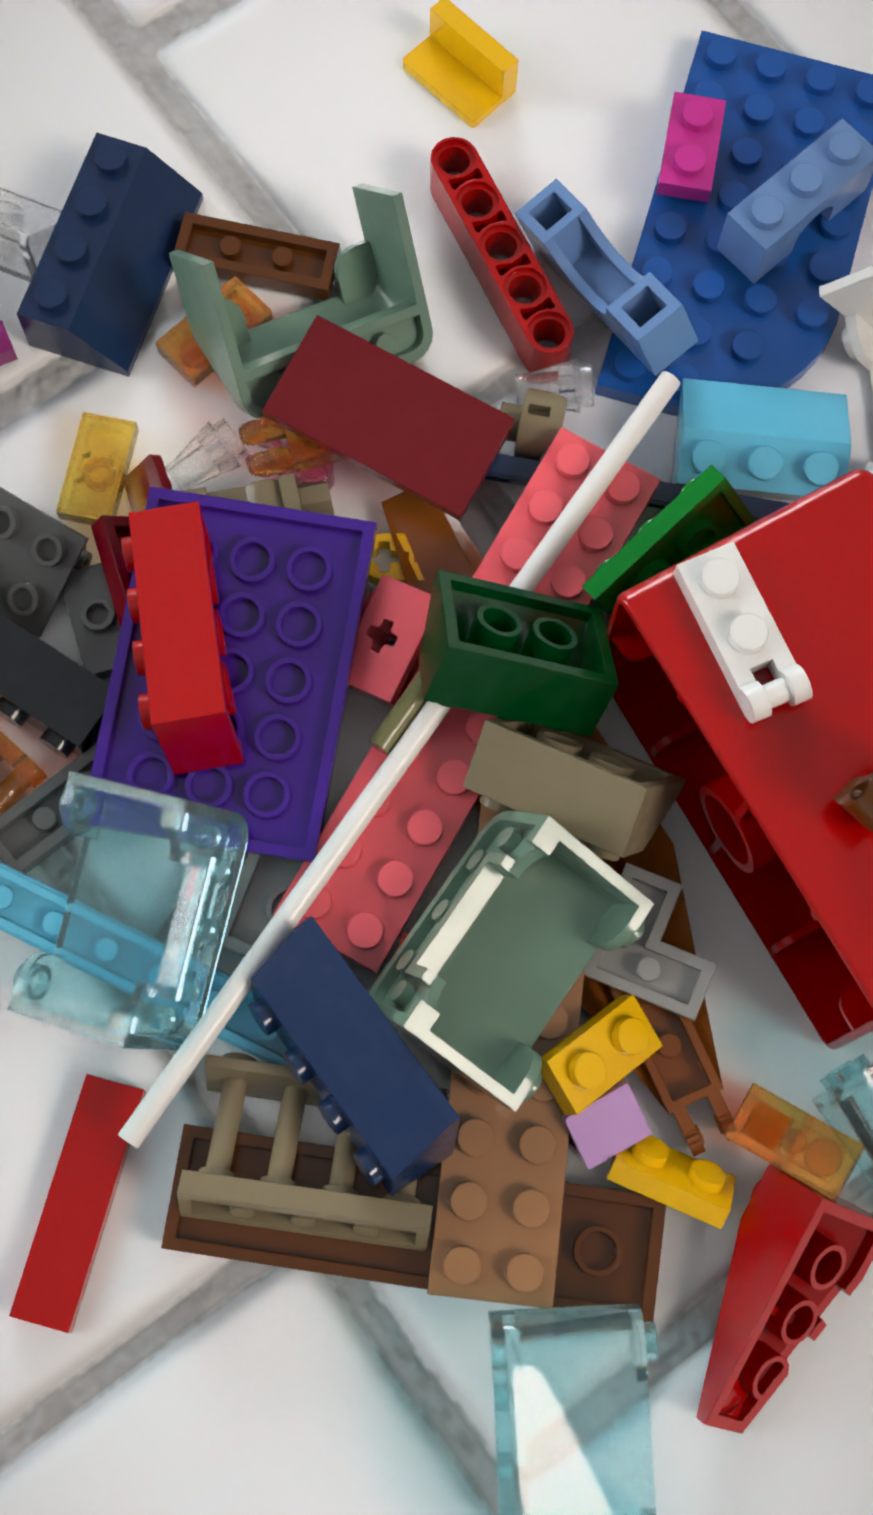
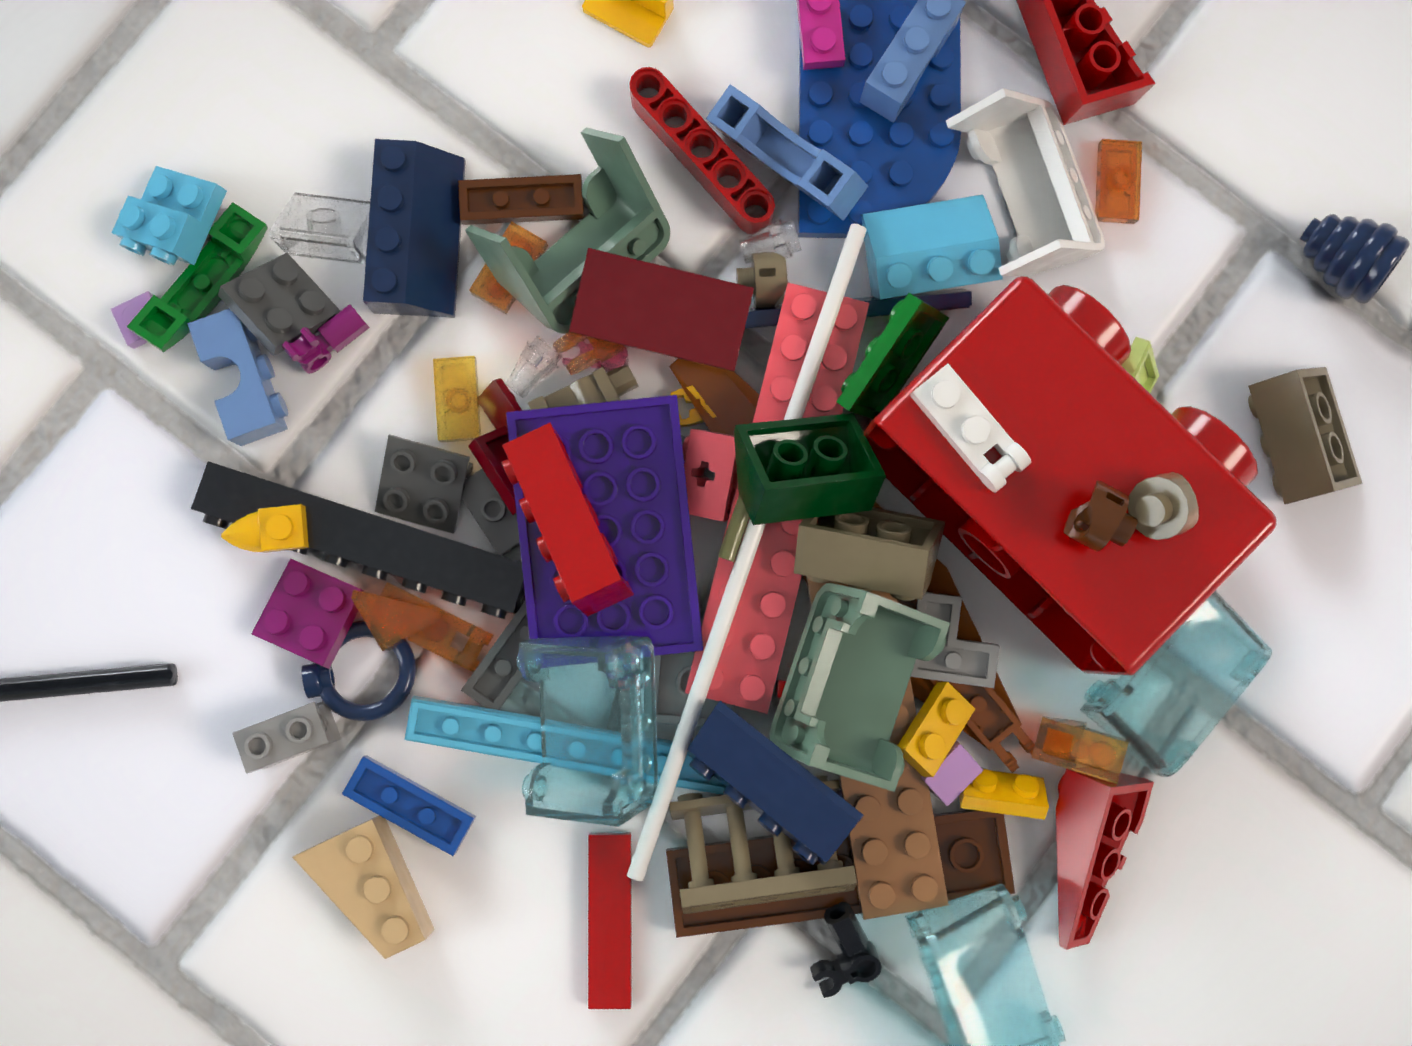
camera: 20 degrees left, 10 degrees up
(409, 1353) = (858, 956): none -> black bar

